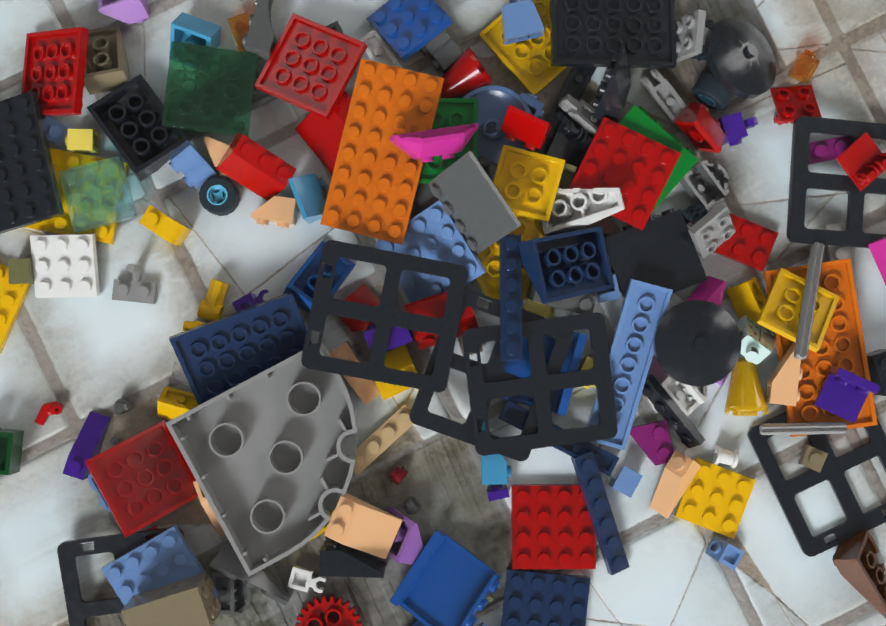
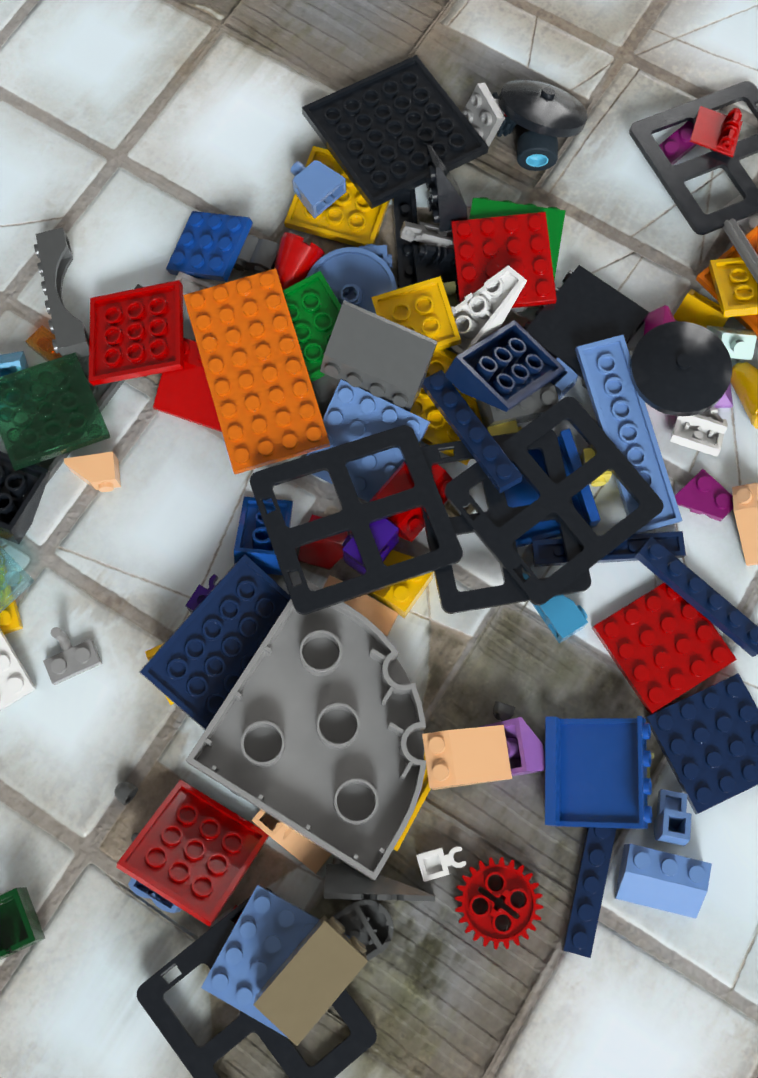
camera: 30 degrees left, 15 degrees down
(48, 409) = (42, 846): red arm -> none
(86, 445) = (106, 852): dark purple slope -> none
(165, 226) = (73, 570): yellow brick -> none
(175, 403) = (174, 755): yellow panel -> none
(178, 375) = (173, 719): clear plate -> none
(191, 164) = (65, 494): medium blue brick -> none
(212, 306) = (163, 617): yellow piece -> none
(213, 191) = (103, 508): black wheel -> none
(255, 167) = (134, 458): red slope -> none
(277, 210) = (180, 492): light nougat slope -> none
(309, 196) = (206, 458): dark azure slope -> none
(344, 561) = (466, 808): black slope -> none
(382, 438) = (430, 653): tan plate -> none
(398, 474) = (468, 686): dark red plate -> none
(435, 142) = (302, 326): dark pink wedge -> none
(497, 492) = (582, 640): dark purple plate -> none
(525, 127) = (383, 266): red slope -> none
(626, 481) = (706, 550): medium blue panel -> none
(664, 95) = (496, 181): light grey hinge -> none
(672, 413) = (704, 457): black plate -> none
(701, 128) = (547, 186): red slope -> none
(706, 183) = (587, 233): dark grey slope -> none
(708, 227) = (617, 264): light grey plate -> none
(735, 128) = (578, 172): dark purple brick -> none
(749, 244) = (654, 265): red plate -> none
(793, 103) = (616, 124): red hinge -> none
(804, 66) = (605, 88): clear orange bracket -> none

